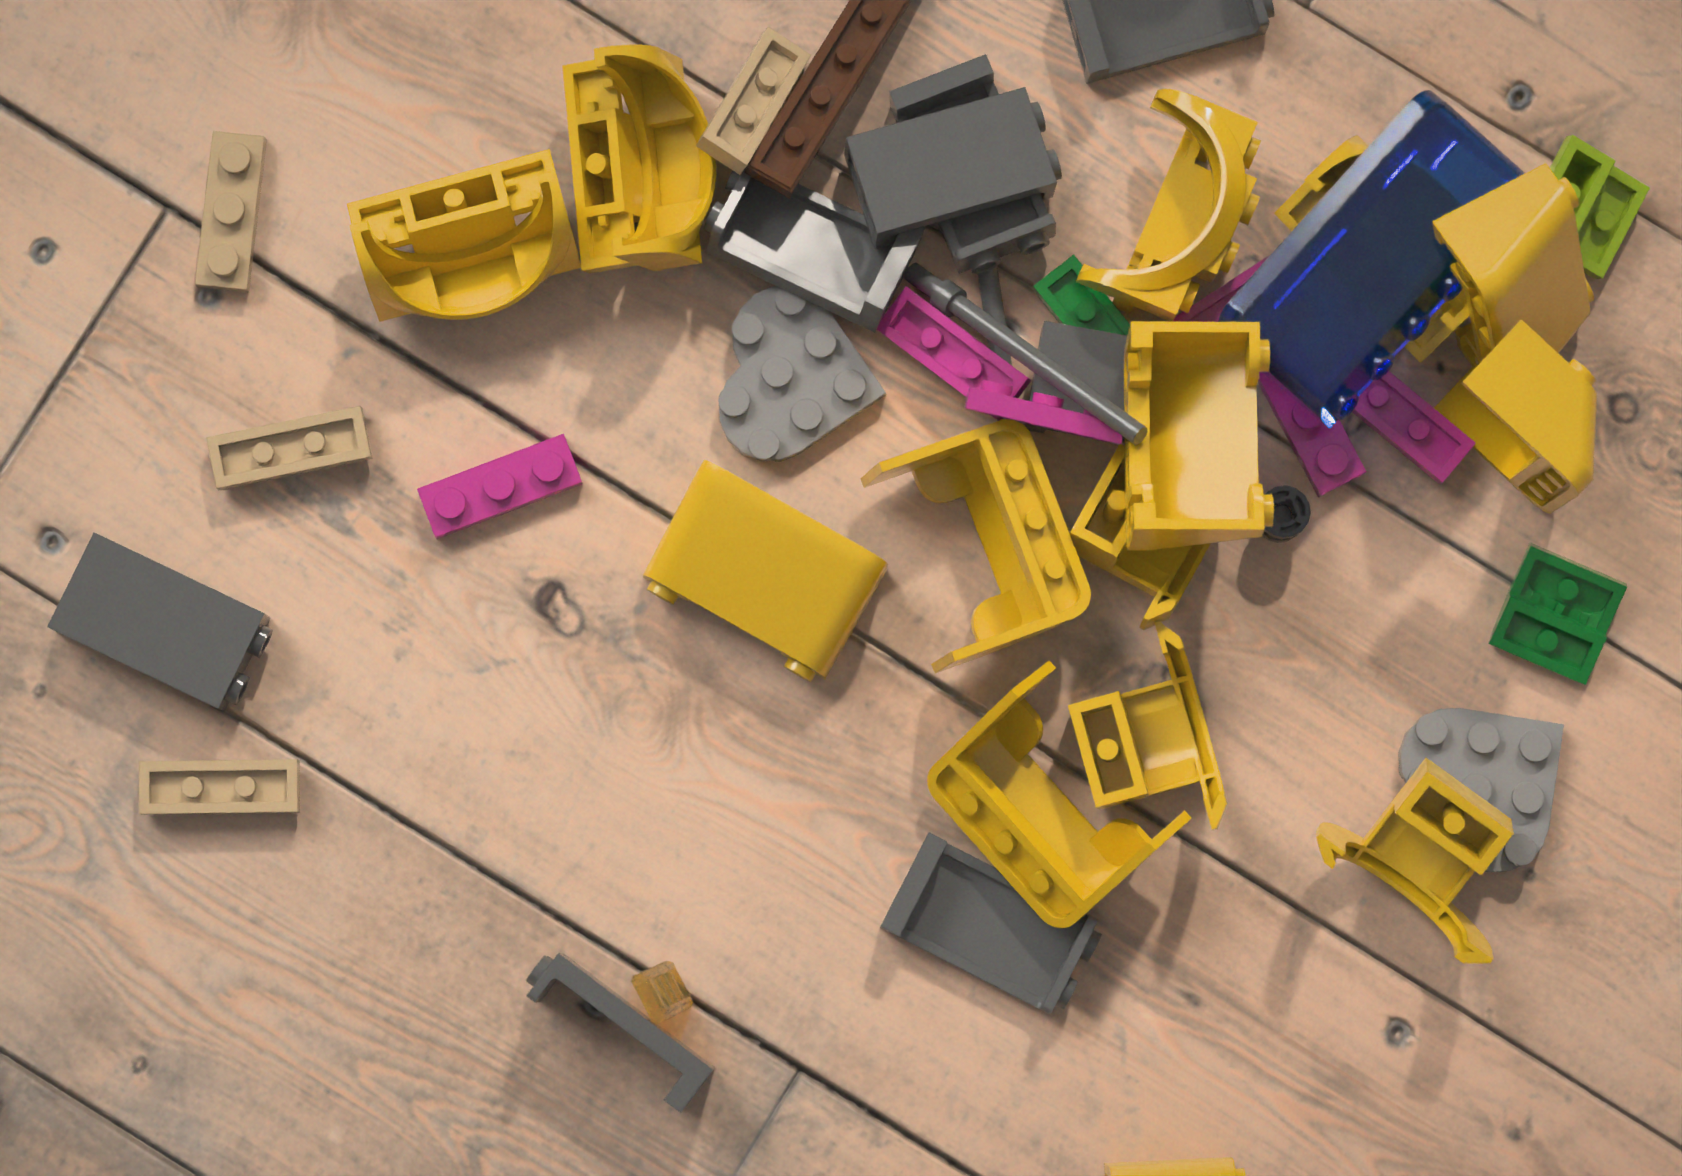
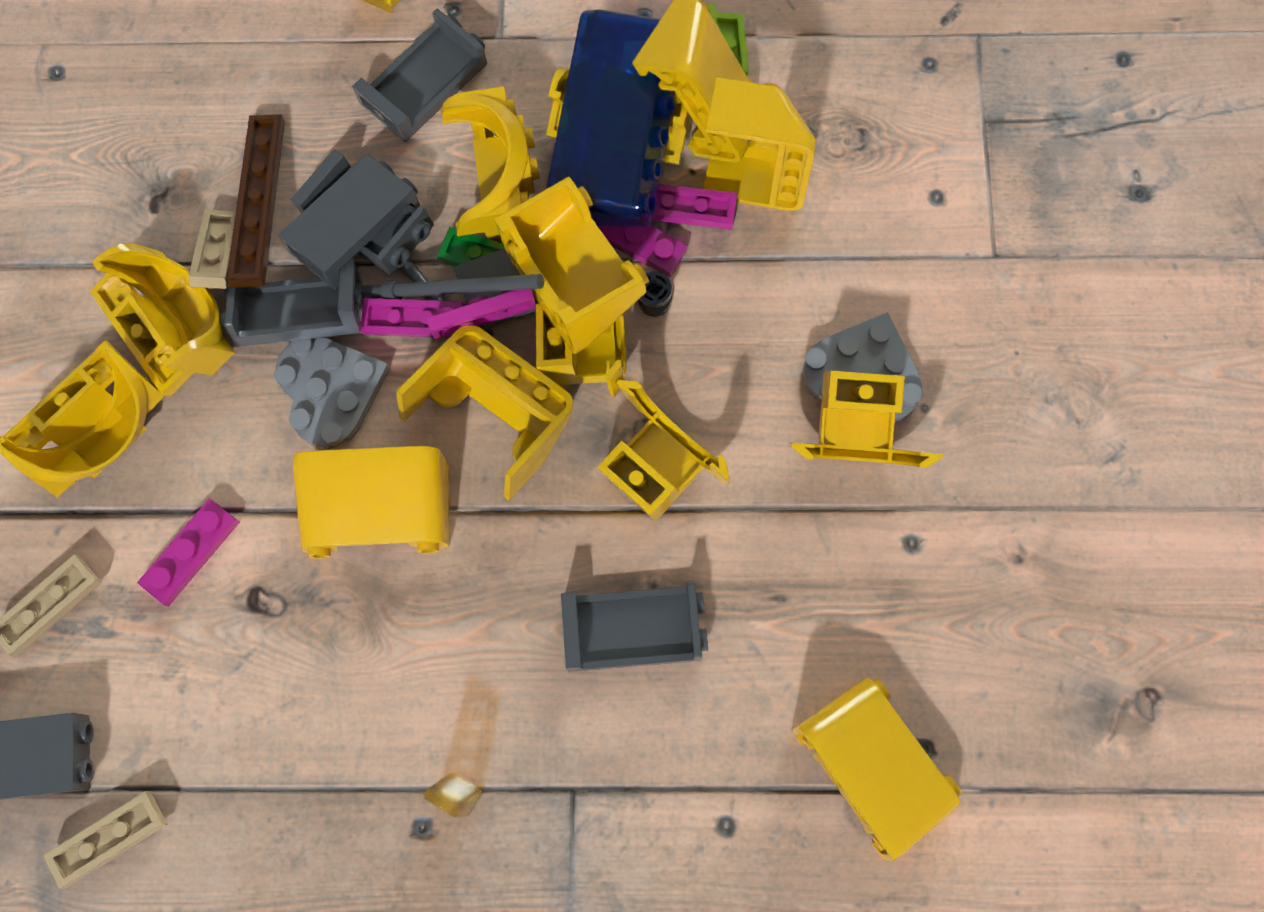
camera: 20 degrees left, 10 degrees down
(632, 1020) = (375, 830): dark grey panel -> none
(1027, 821) = (615, 553): yellow windscreen -> none
(1557, 613) = (843, 257): green slope -> none

